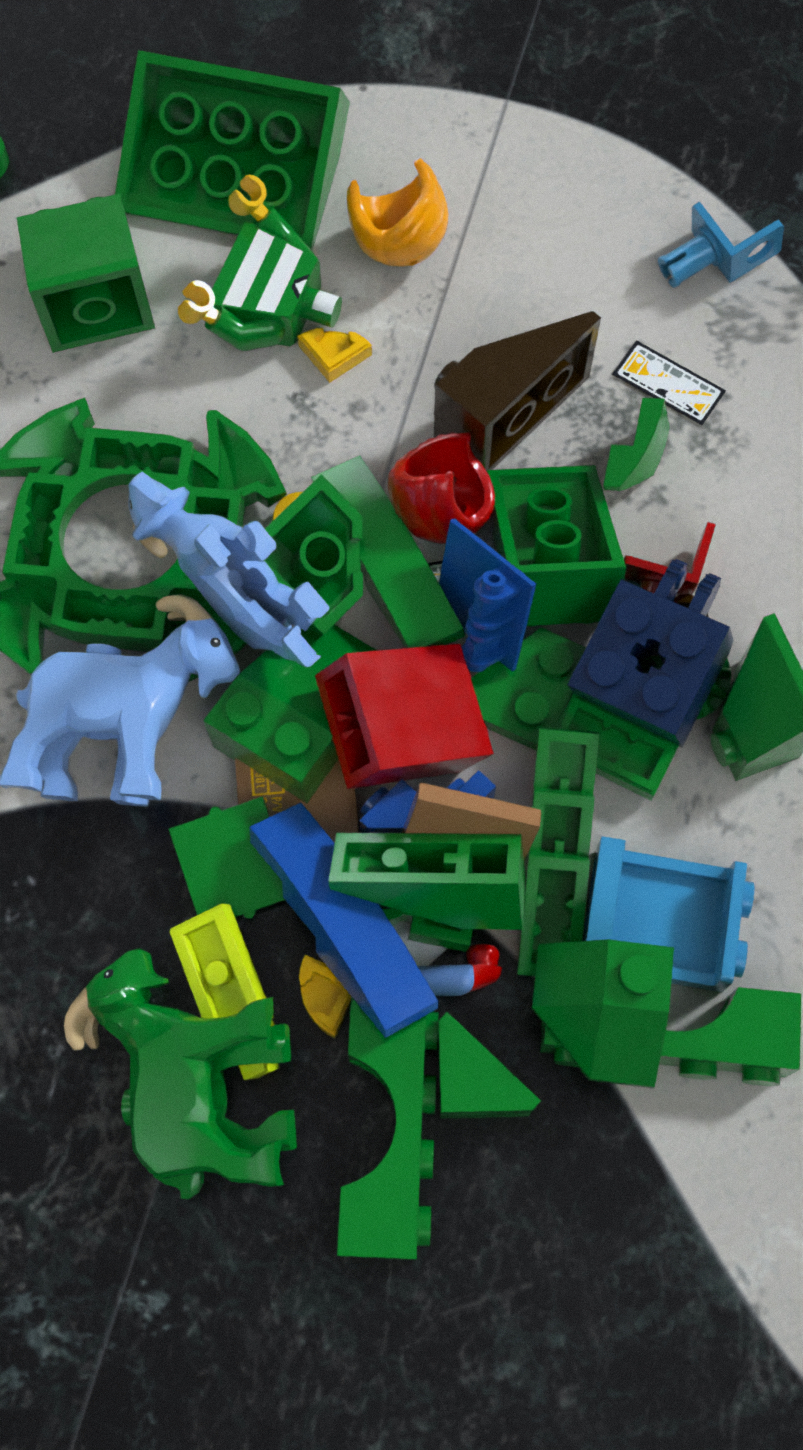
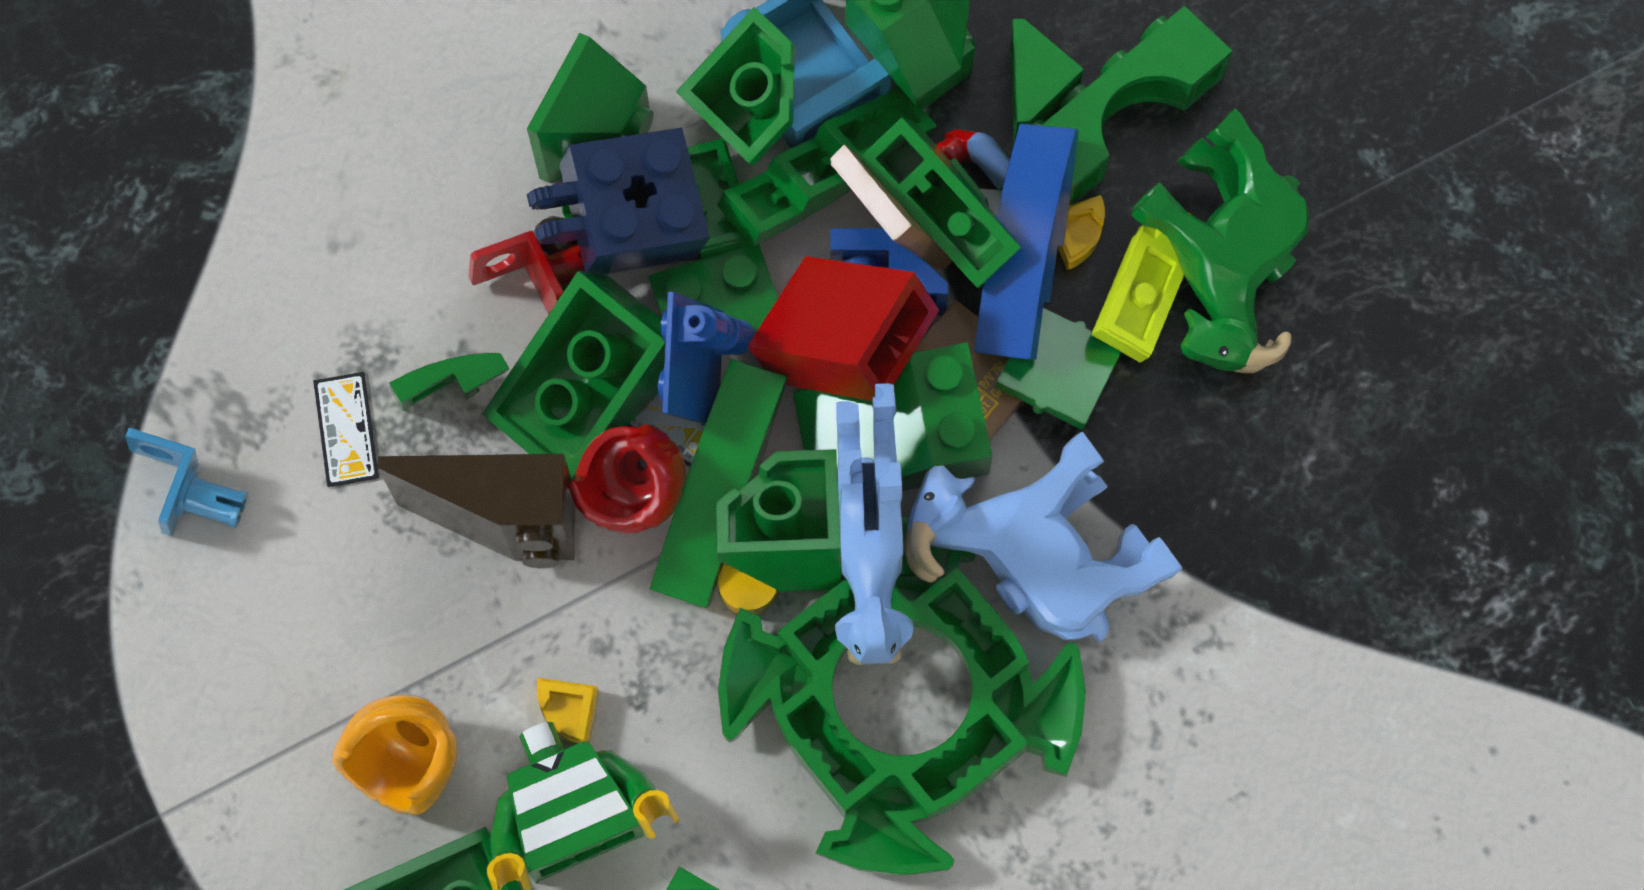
camera: 135 degrees left, 0 degrees up
(668, 818) = (746, 87): none -> green slope

